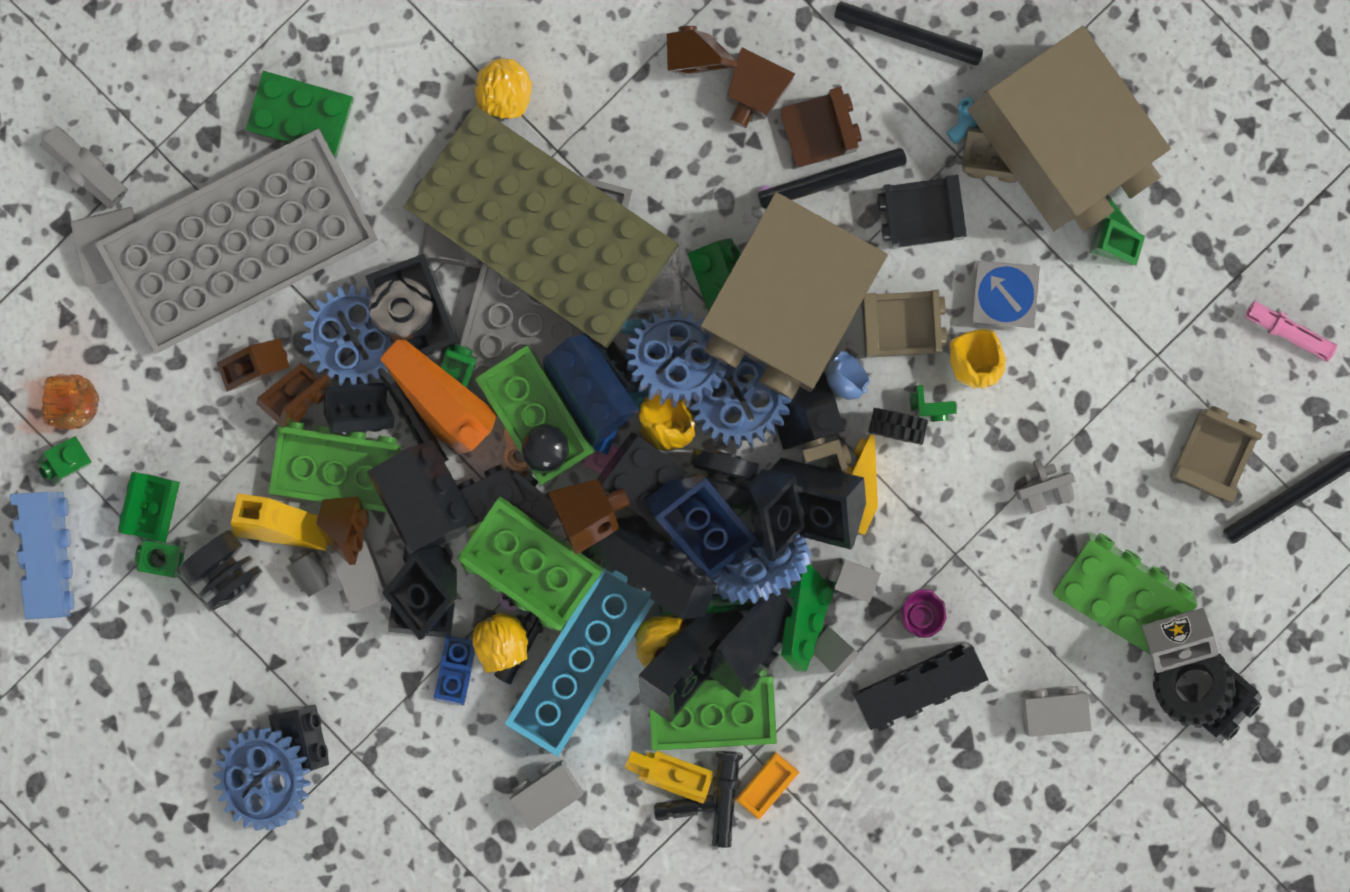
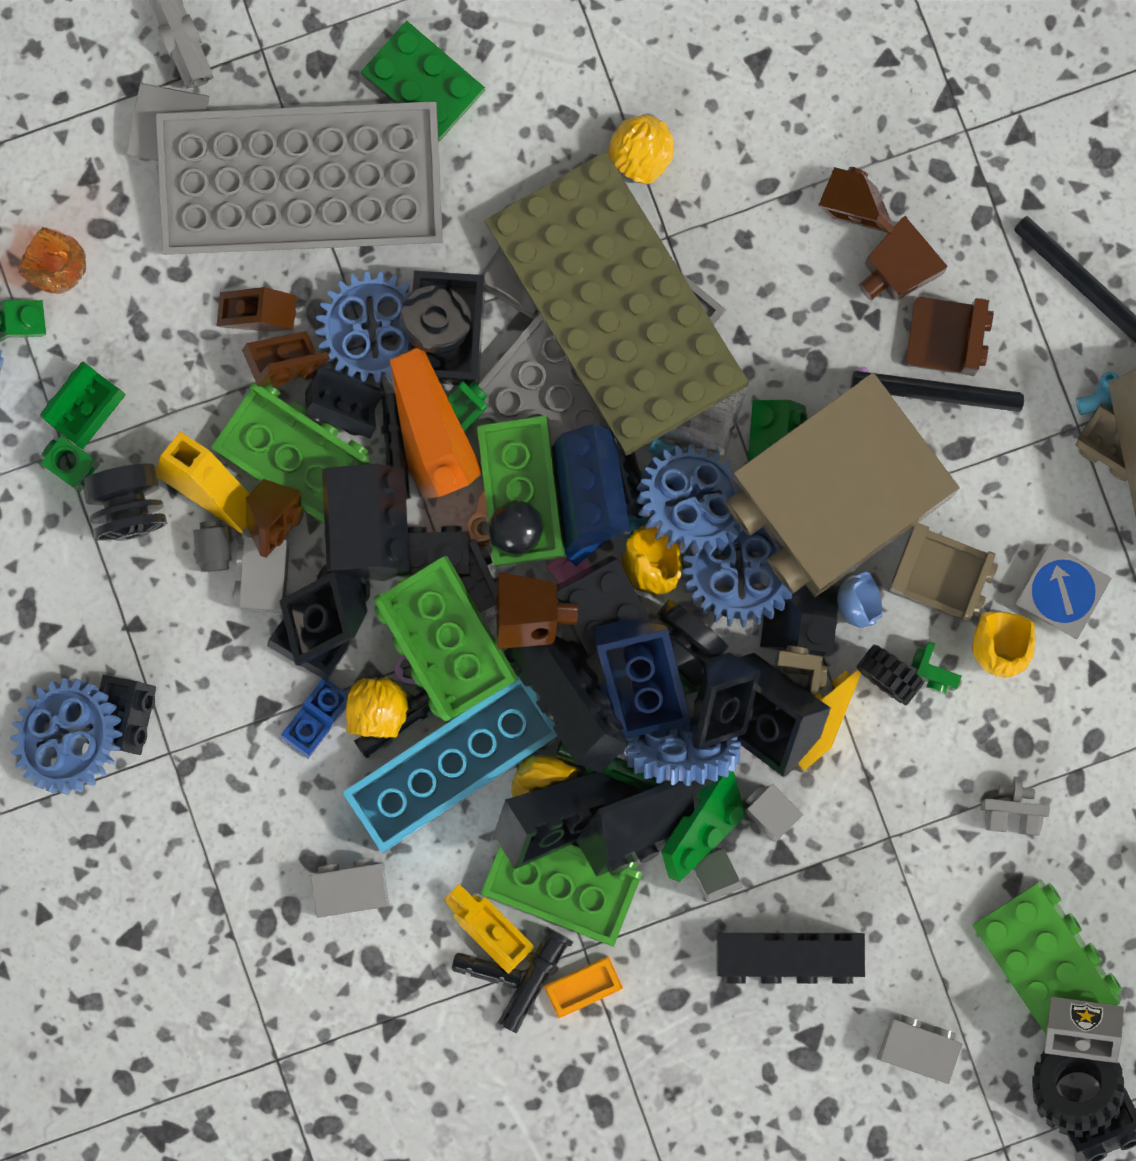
camera: 30 degrees right, 5 degrees down
(922, 212) = (1014, 469): black panel -> none
(923, 613) = (827, 881): magenta hair -> none

